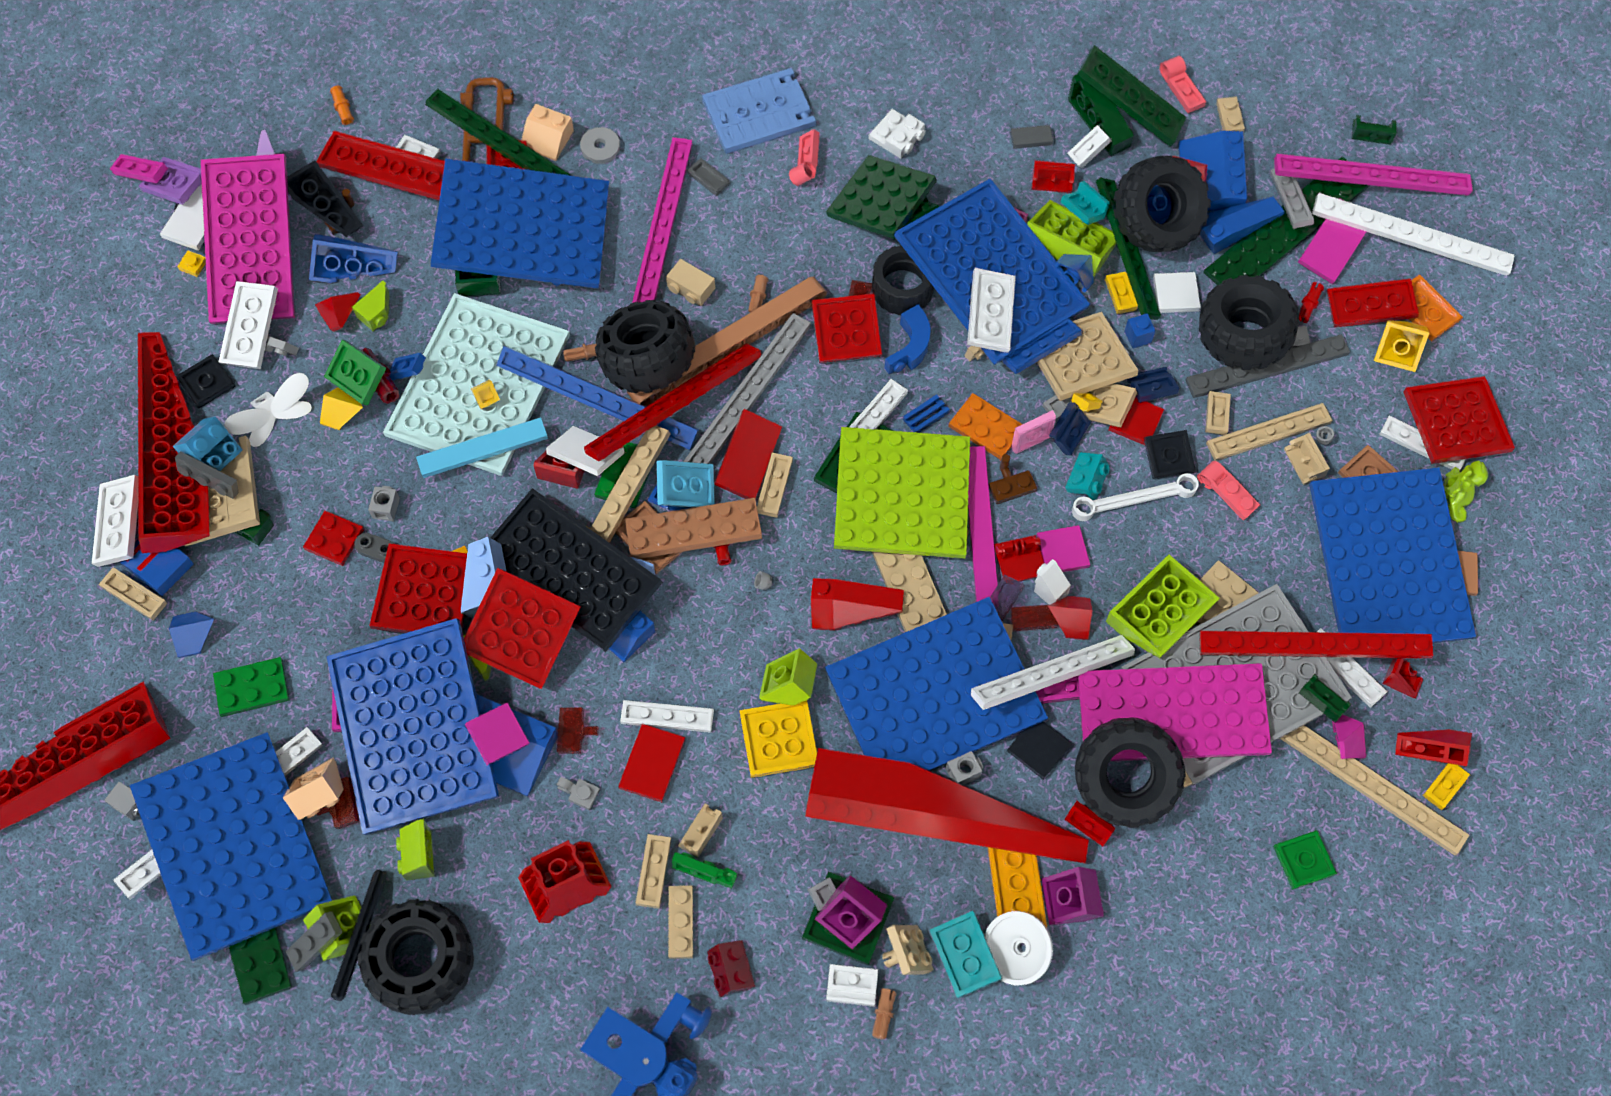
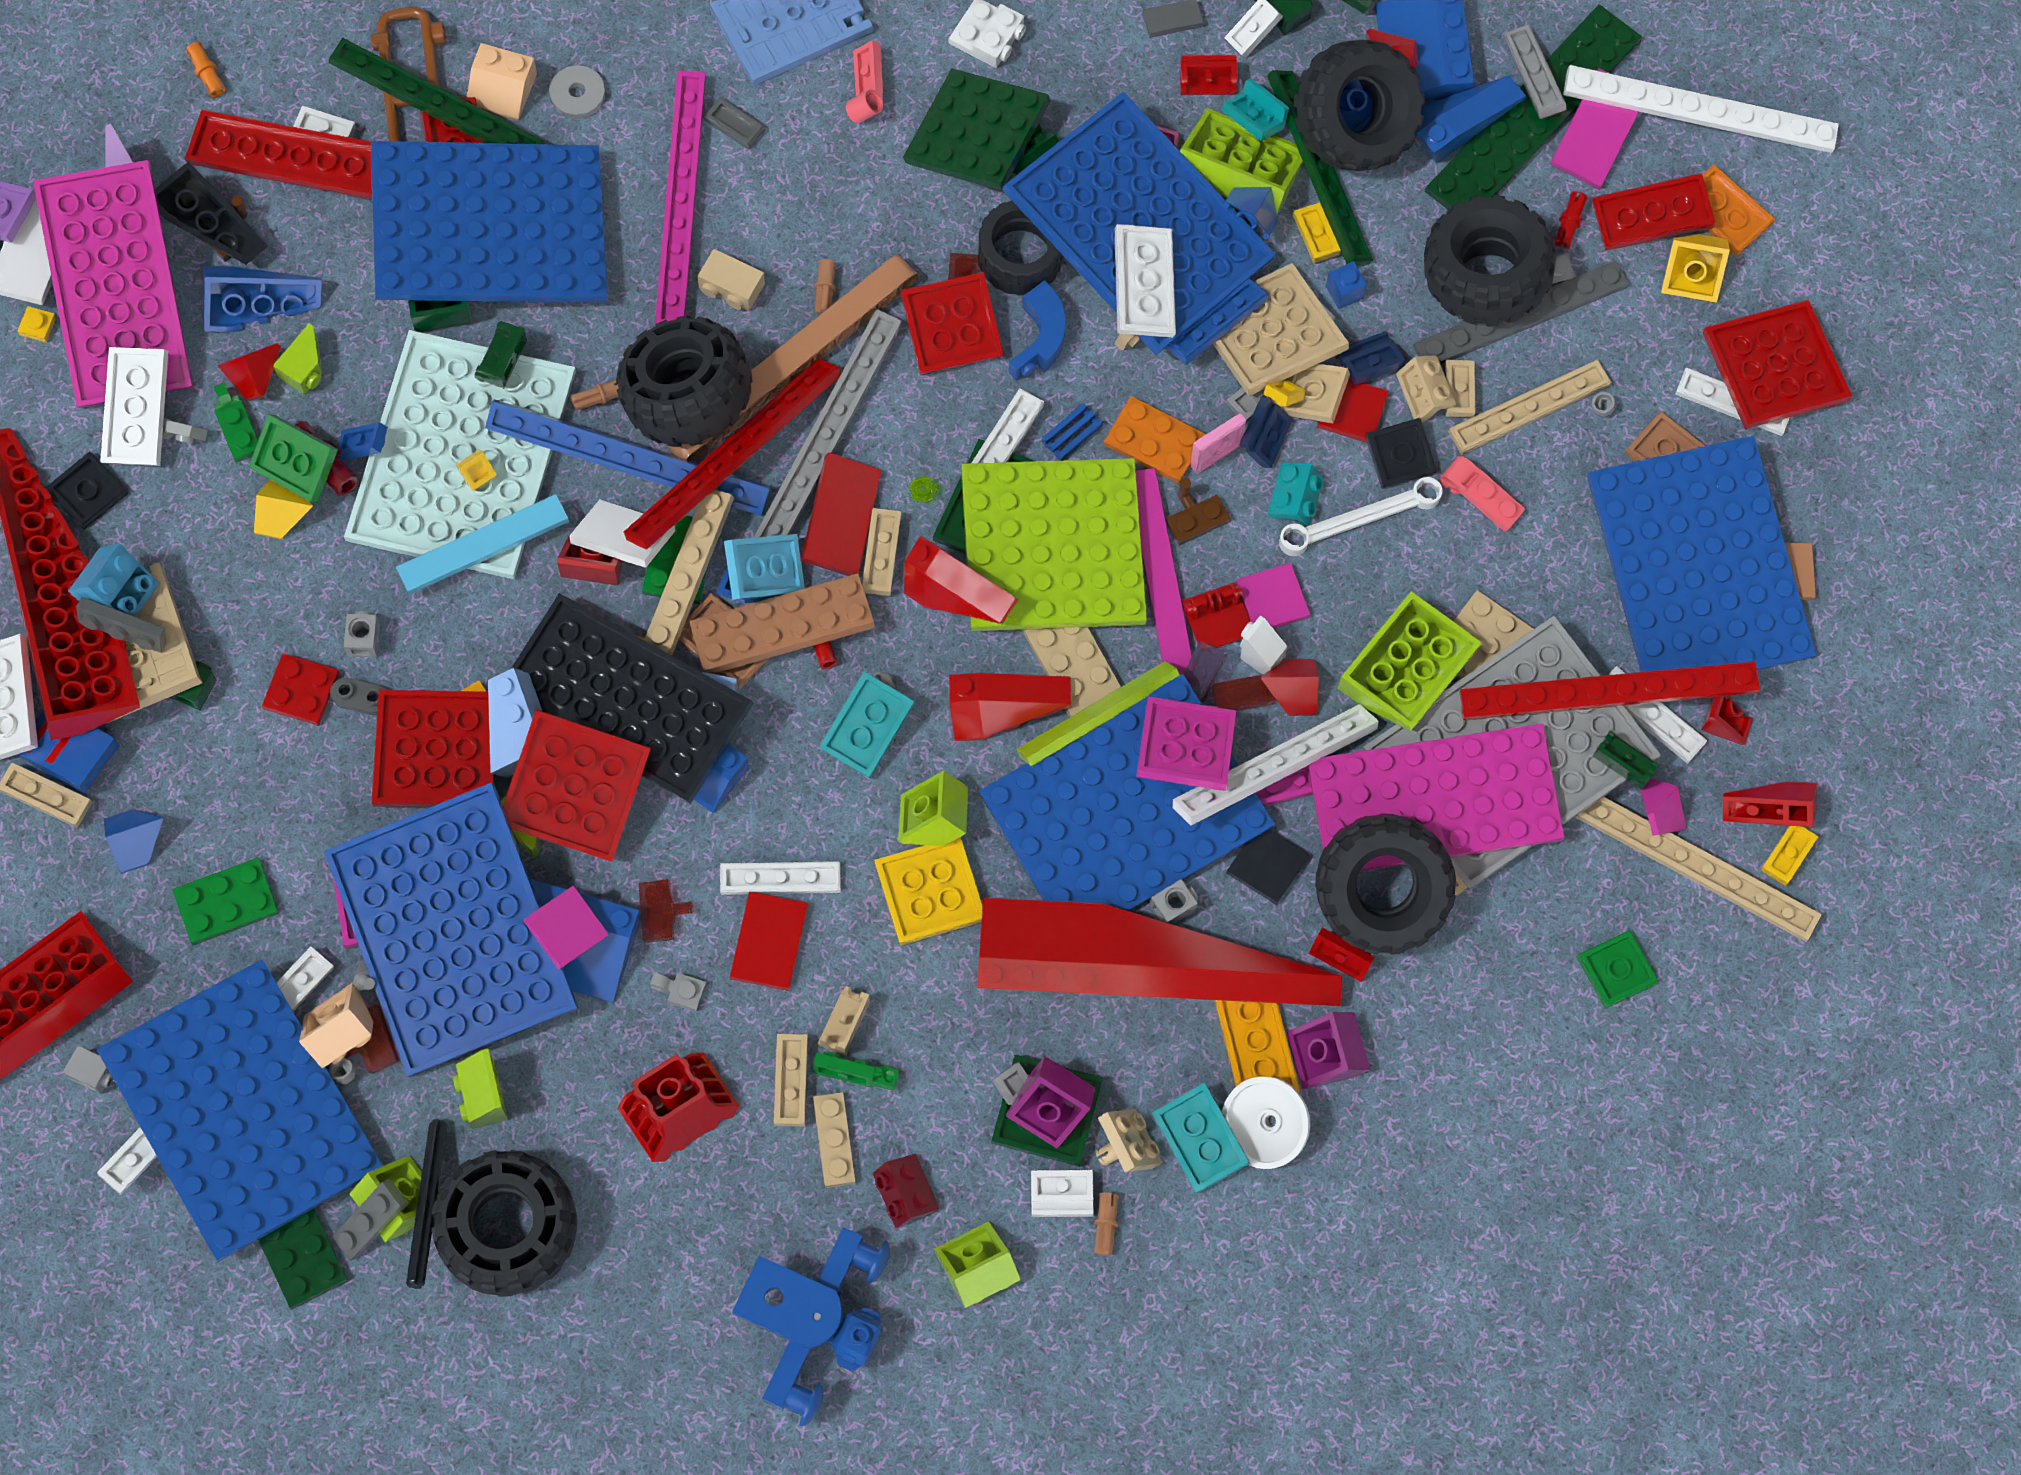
camera: 10 degrees left, 5 degrees up
(281, 406) = (199, 515): white piece -> none
(308, 824) = (347, 1066): none -> light grey hinge
(319, 345) = (235, 424): none -> green hinge
(340, 755) = (362, 977): none -> light grey bar
(517, 316) = (502, 354): none -> dark green hinge
(747, 609) = (867, 724): none -> teal plate
(779, 1034) = (977, 1264): none -> lime slope
(811, 449) = (922, 496): none -> clear neon green plate
(820, 512) = (949, 585): none -> wedge
(920, 620) = (1096, 714): none -> lime tile
(986, 648) = (1186, 743): none -> dark pink plate
(1176, 292) = (1391, 223): white tile -> none
(1192, 408) = (1425, 387): none -> tan bracket
(1306, 459) = (1581, 439): tan hinge -> none
(1372, 174) = (1641, 29): dark pink plate -> none
(1460, 488) = (1785, 458): lime animal -> none

